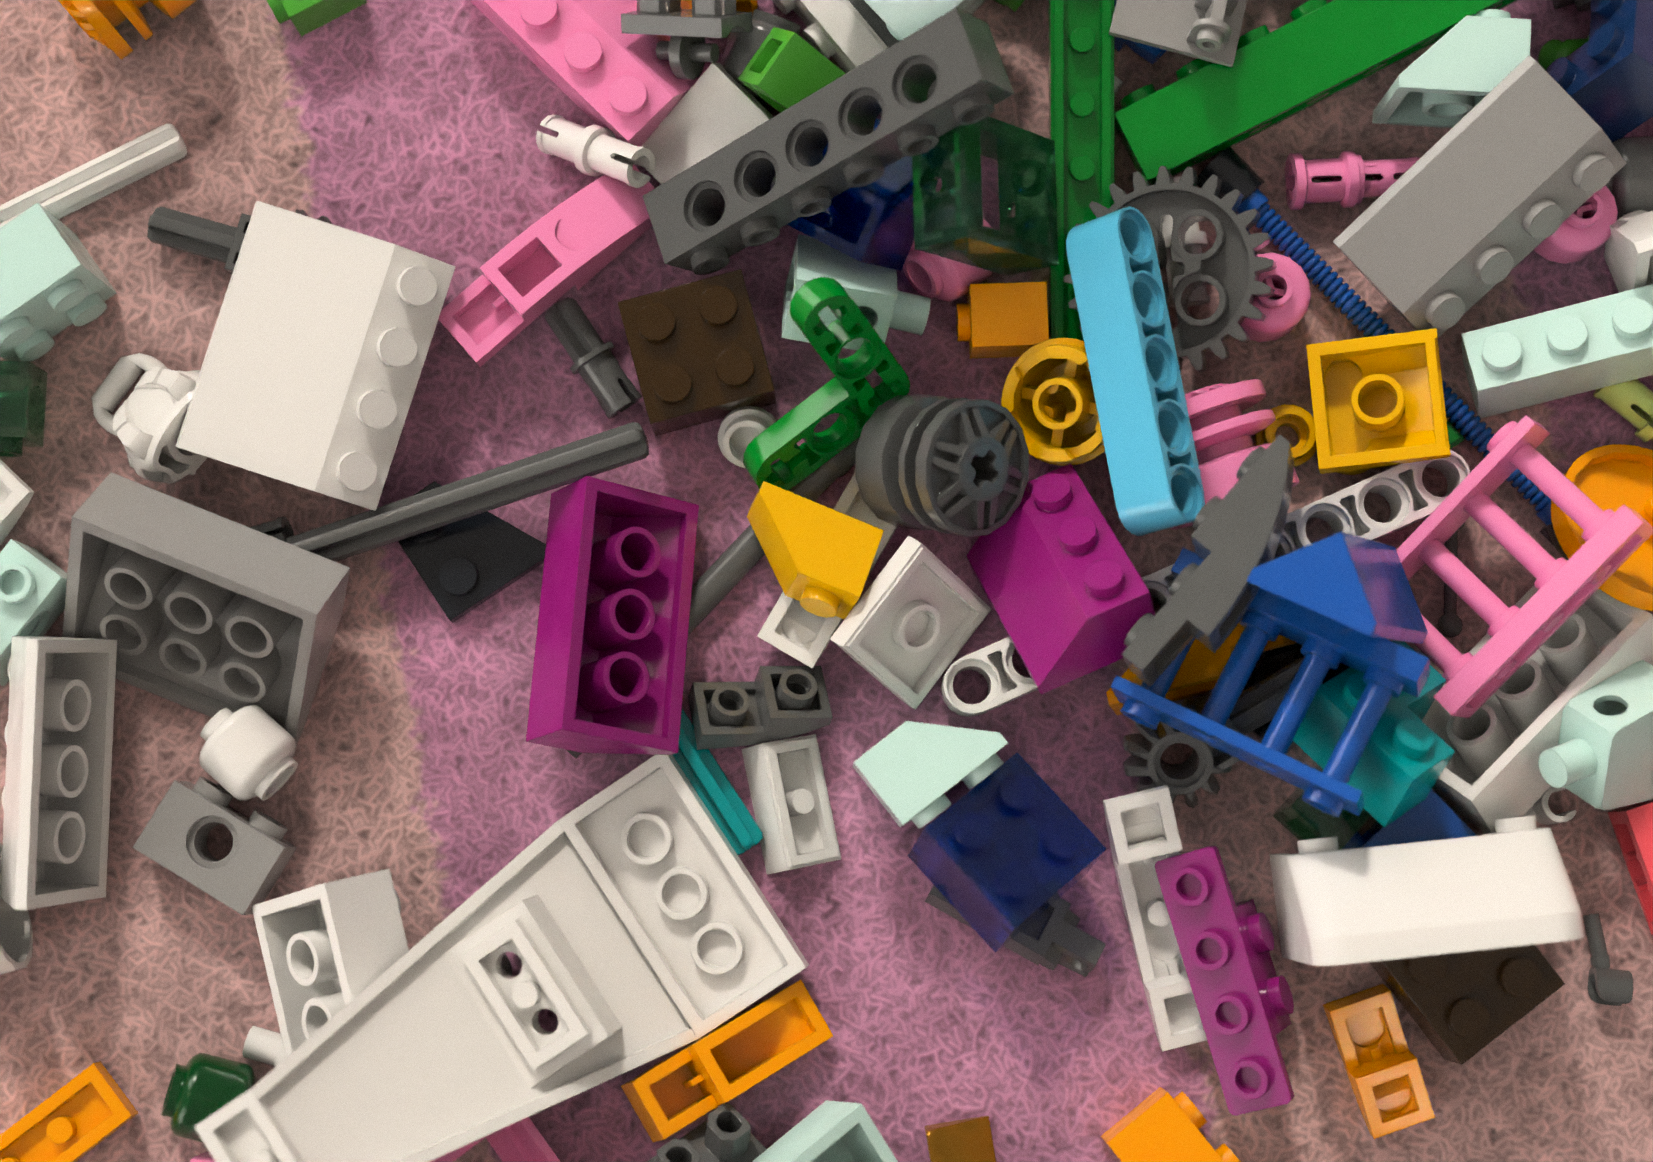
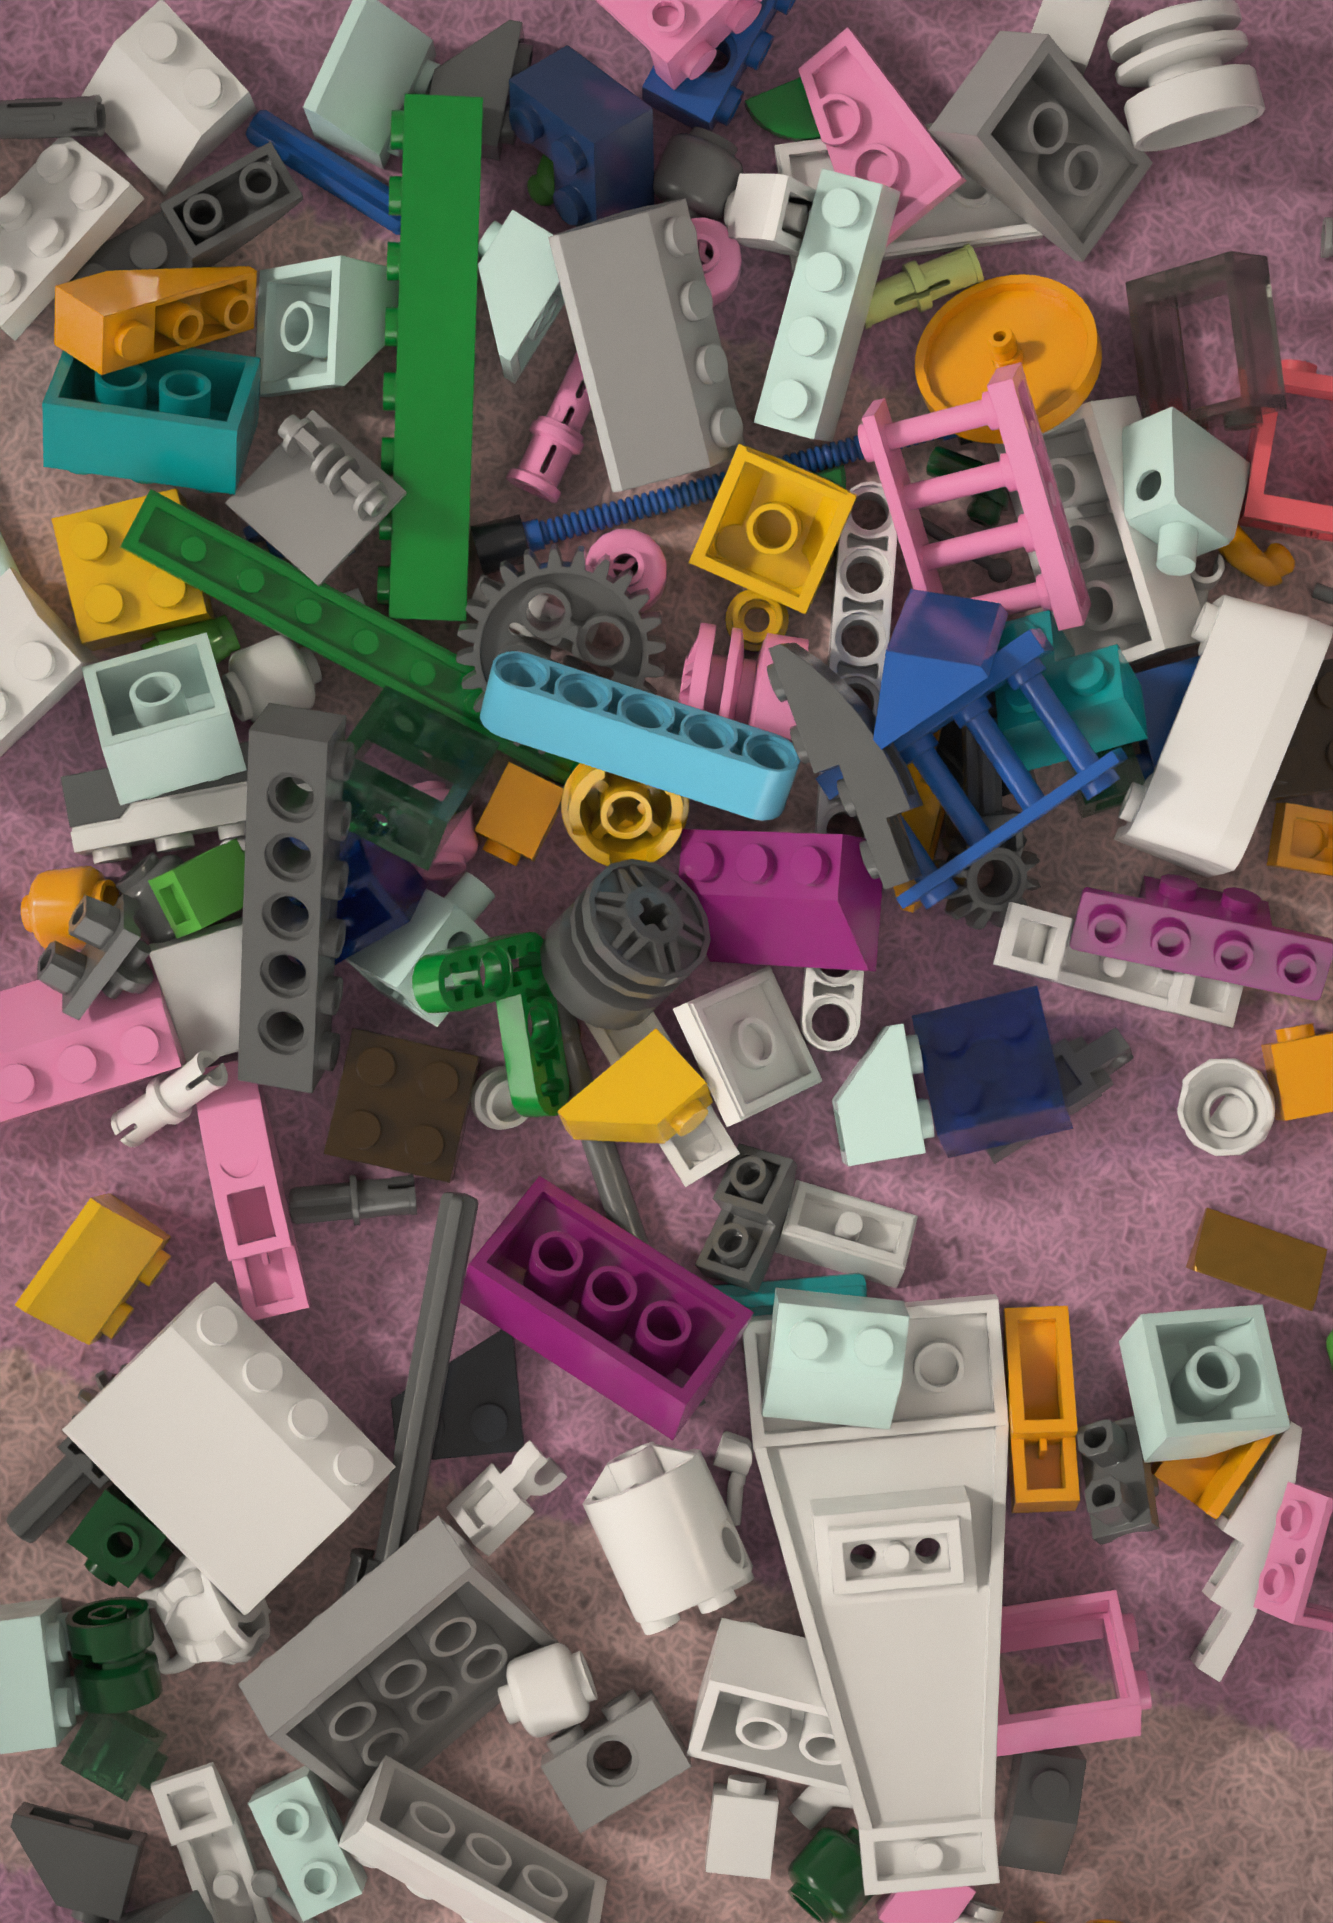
camera: 65 degrees left, 5 degrees up
(76, 363) = (115, 1664): none -> dark green wheel
(185, 309) = (101, 1543): none -> dark green brick
(212, 992) = (742, 1827): none -> white brick
(394, 619) = (497, 1501): none -> white plate
(412, 163) = (96, 1270): none -> yellow slope
(439, 782) = (667, 1534): none -> white cylinder
(543, 810) = (734, 1455): none -> white hand
(674, 847) = (835, 1358): none -> light aqua slope
(1018, 43) = (271, 674): none -> white head
(1088, 1103) = (1241, 1117): none -> white hair
(1511, 578) = (985, 506): none -> dark green arm
(1587, 838) = (1263, 567): none -> light orange arm

